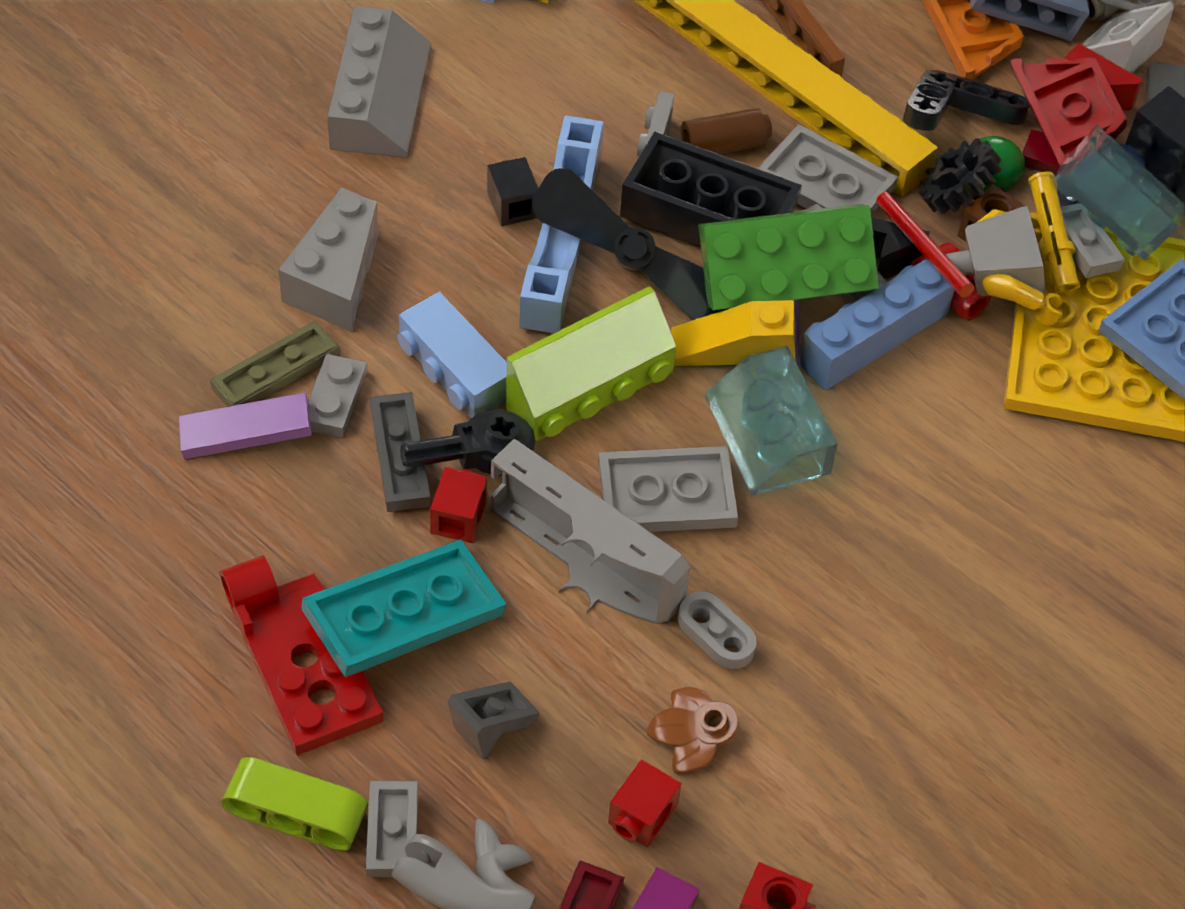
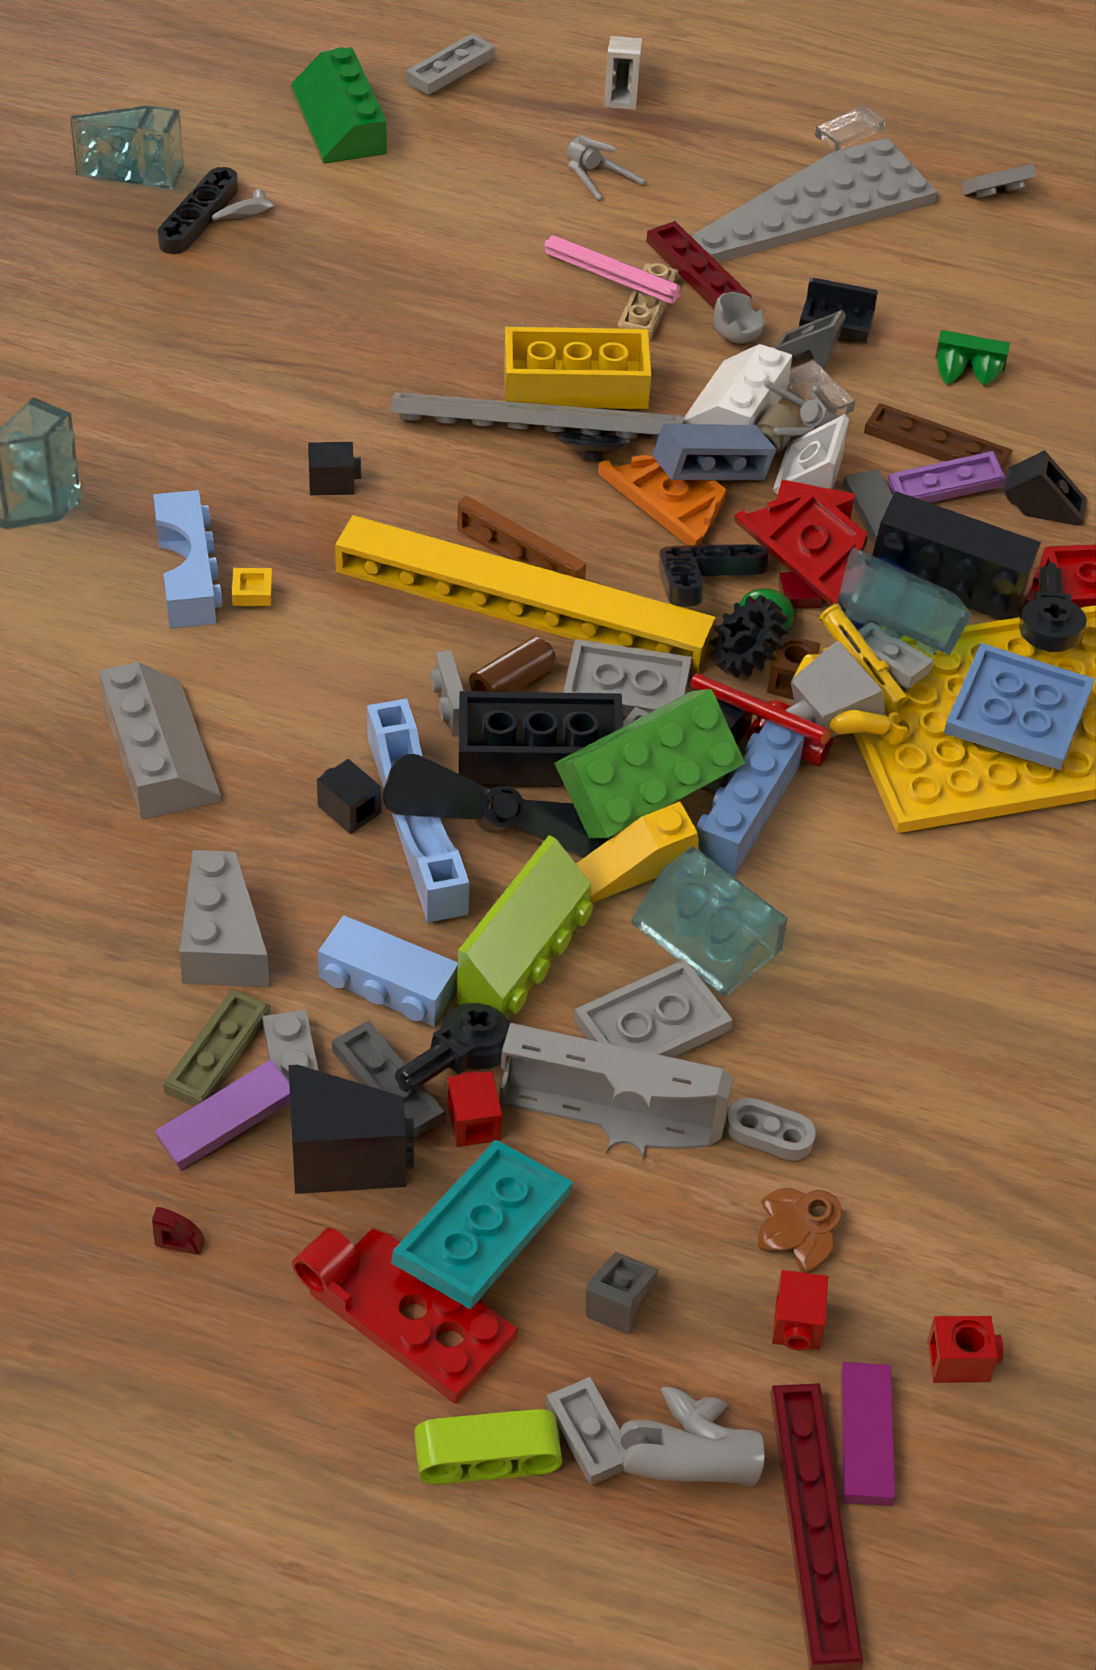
camera: 25 degrees left, 5 degrees down
(144, 508) = (176, 1232): none -> dark red tile
(324, 481) = (347, 1134): none -> black slope

